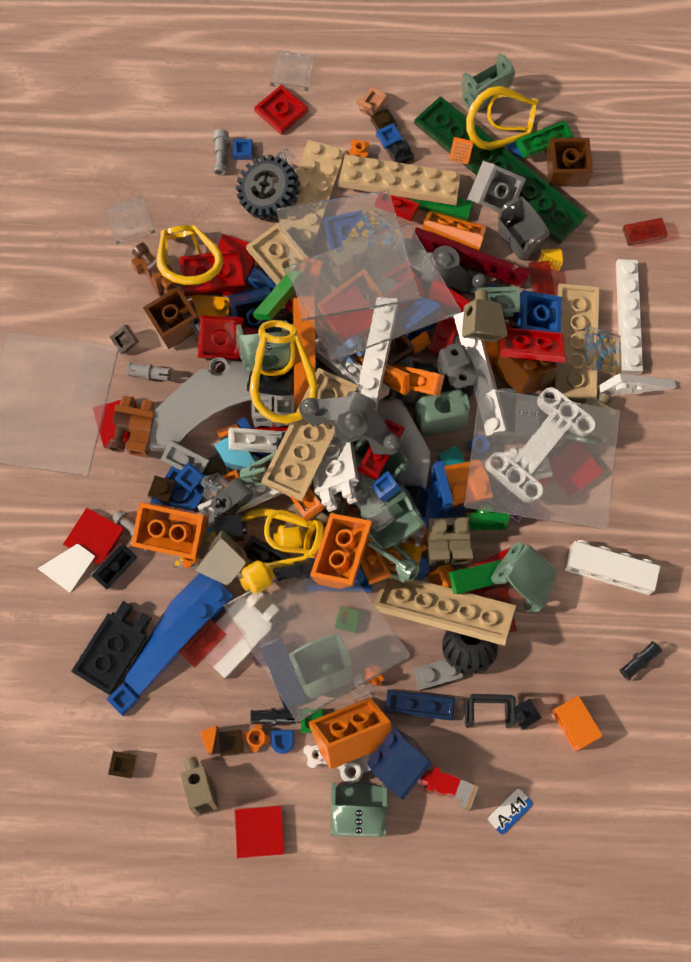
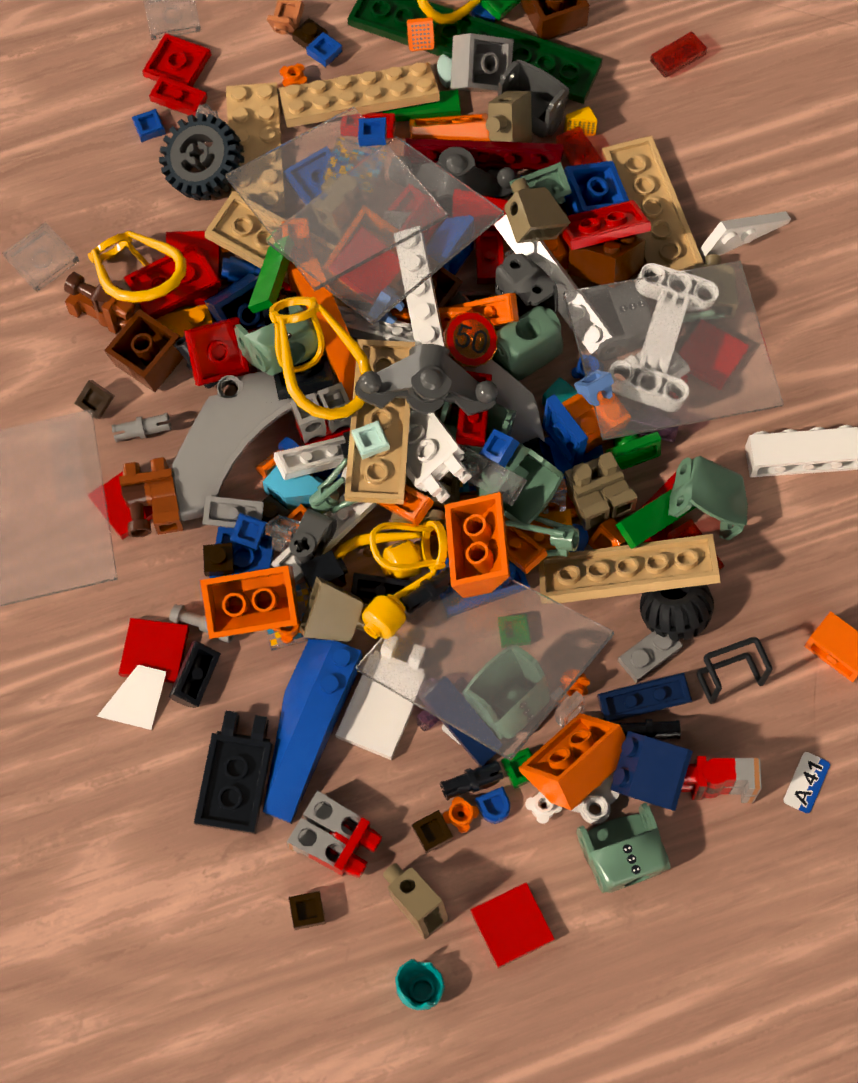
camera: 15 degrees left, 5 degrees down
(122, 699) = (273, 832): blue tile -> none
(163, 727) = (344, 836): none -> light grey hips
(176, 850) = (419, 985): none -> teal hair
(202, 643) = (347, 723): clear red plate -> none
(209, 738) = (402, 836): orange slope -> none
(220, 138) = (116, 122): light grey piece -> none
(271, 135) = (177, 96): none -> red plate
(295, 446) = (370, 439): none -> light aqua tile
(392, 214) = (372, 131): none -> blue tile
(399, 397) = (471, 339): none -> piece
(400, 152) = (346, 62): black tile -> none
(414, 730) = (656, 730): none -> black pin
(420, 342) = (466, 272): orange slope -> none
(468, 182) = (444, 70): none -> light aqua tile
(471, 465) = (594, 383): none -> medium blue tile
(499, 238) = (510, 117): none -> dark tan torso
(526, 714) = (780, 659): black tile -> none
(603, 350) = (688, 206): clear tile -> none
(629, 316) = (700, 157): white plate -> none

